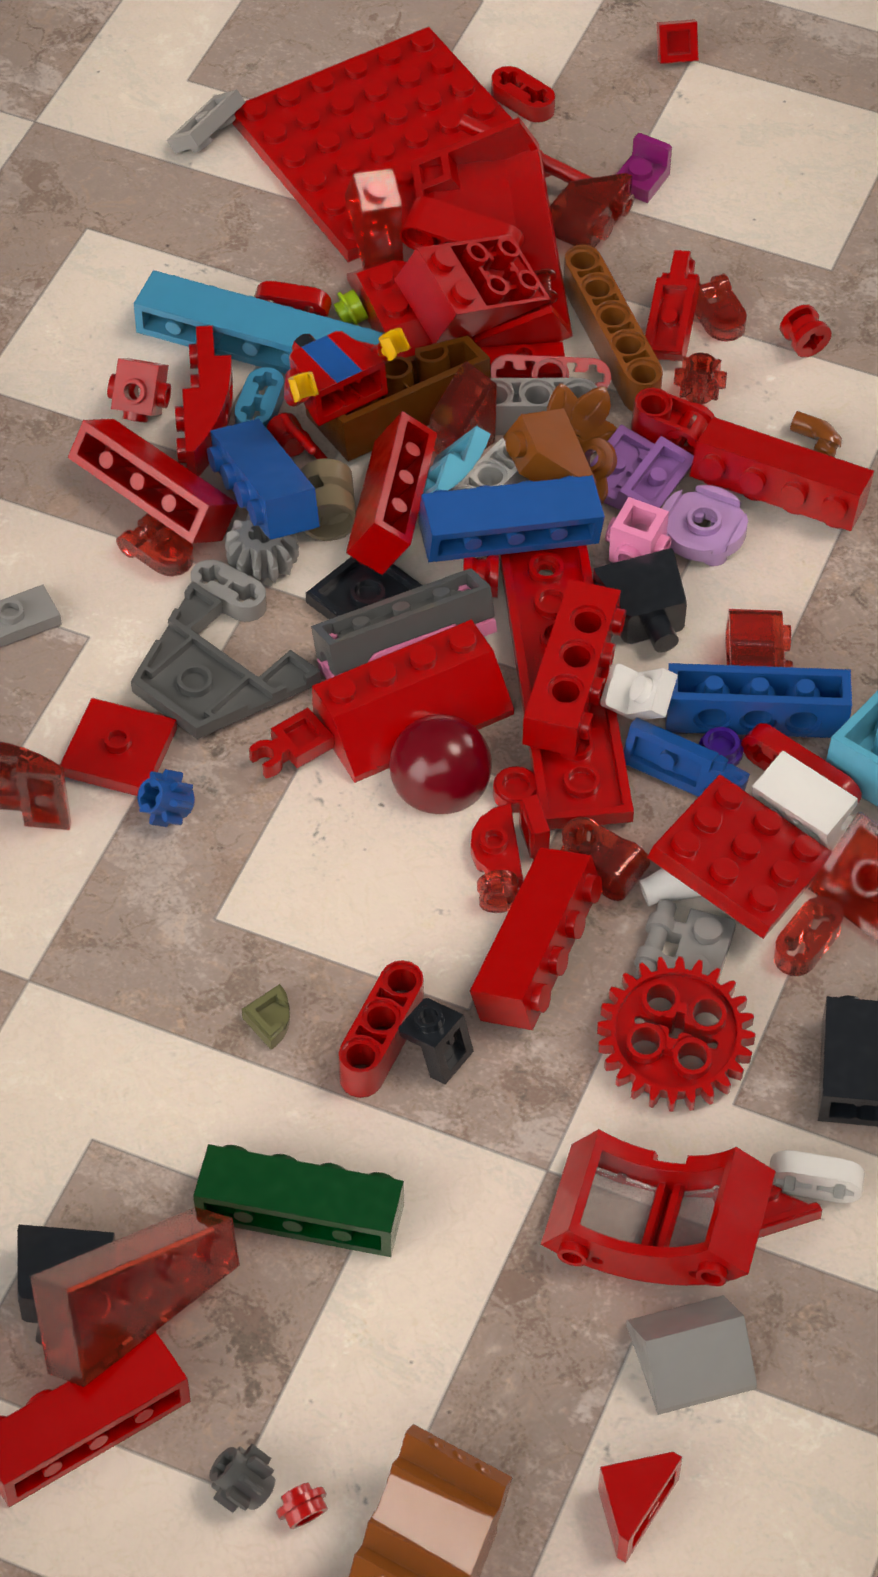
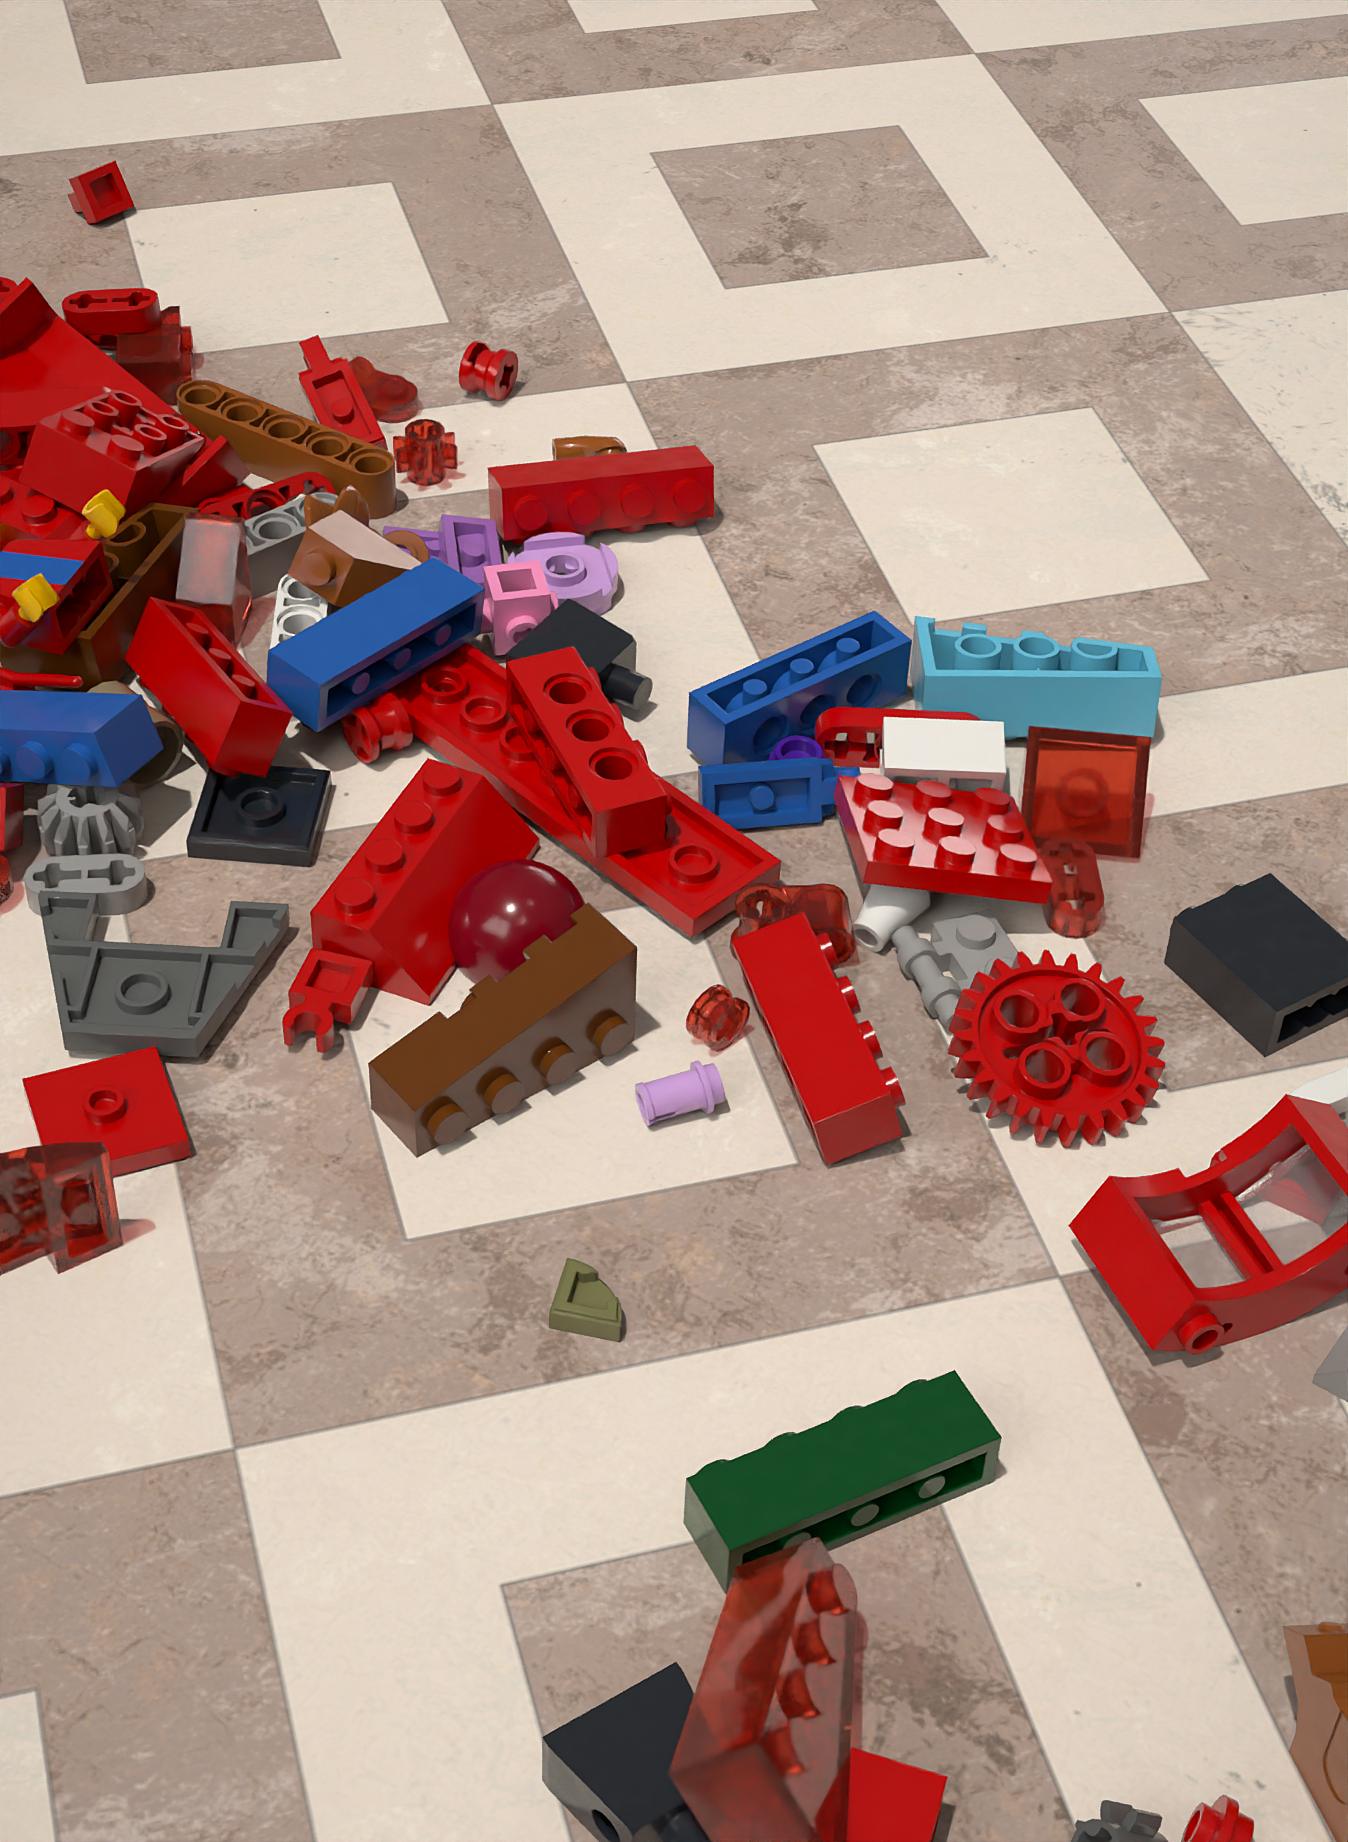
camera: 40 degrees left, 10 degrees down
(166, 798) = (214, 1136): blue gear -> none
(360, 833) = (511, 1036): none -> reddish brown wedge
(377, 1047) = (740, 1233): red beam -> none
(402, 620) = (341, 809): dark grey piece -> none
(433, 925) = (680, 1093): none -> lavender pin
(441, 1035) = (818, 1189): black bracket -> none
(456, 461) = (259, 617): medium azure slope -> none
(495, 842) = (664, 978): red plate -> none
(512, 785) = (626, 909): red tile -> none
(533, 825) = (691, 933): red tile -> none
(578, 161) = (112, 311): none -> red beam
(638, 693) = (686, 737): white bracket -> none
(648, 166) = (178, 288): magenta bracket -> none
(669, 416) = (421, 496): red piece -> none
(757, 638) = (727, 643): clear red brick -> none

